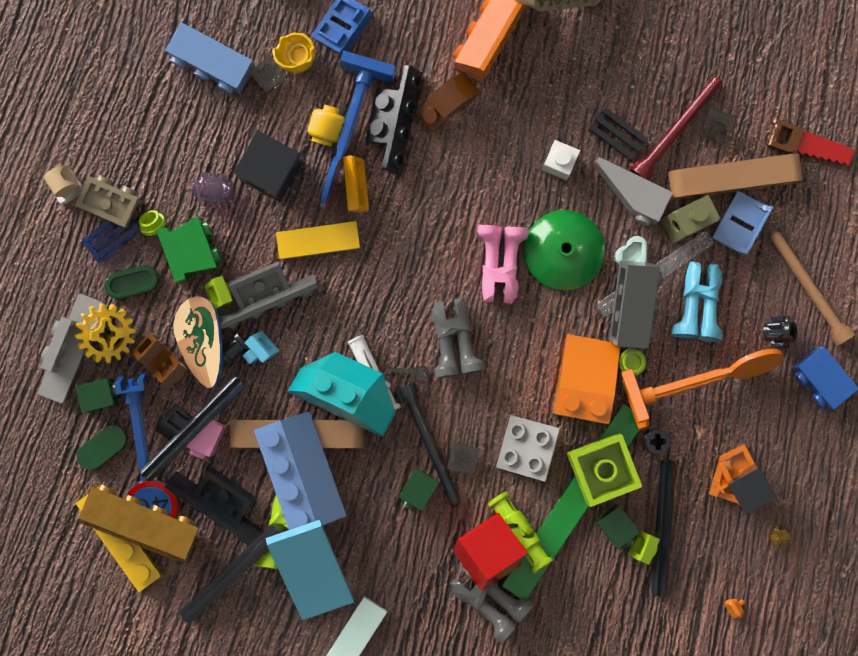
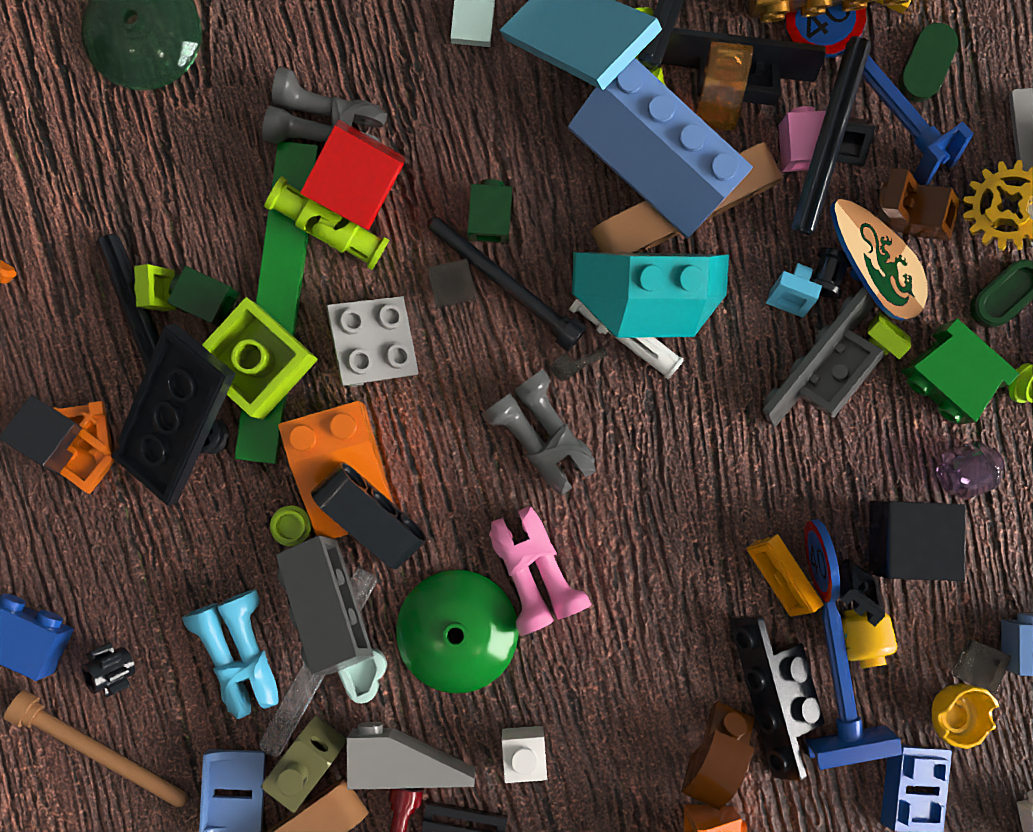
camera: 150 degrees right, 0 degrees up
(97, 395) = (982, 115): dark green brick -> none
(238, 493) = (724, 84): none -> clear orange slope
(318, 240) = (793, 474): yellow tile -> none
(321, 157) = (865, 595): none -> black tile
(582, 343) = (368, 516): none -> black beam
(668, 461) = (172, 413): none -> black tile
(746, 367) = (254, 480): orange piece -> none

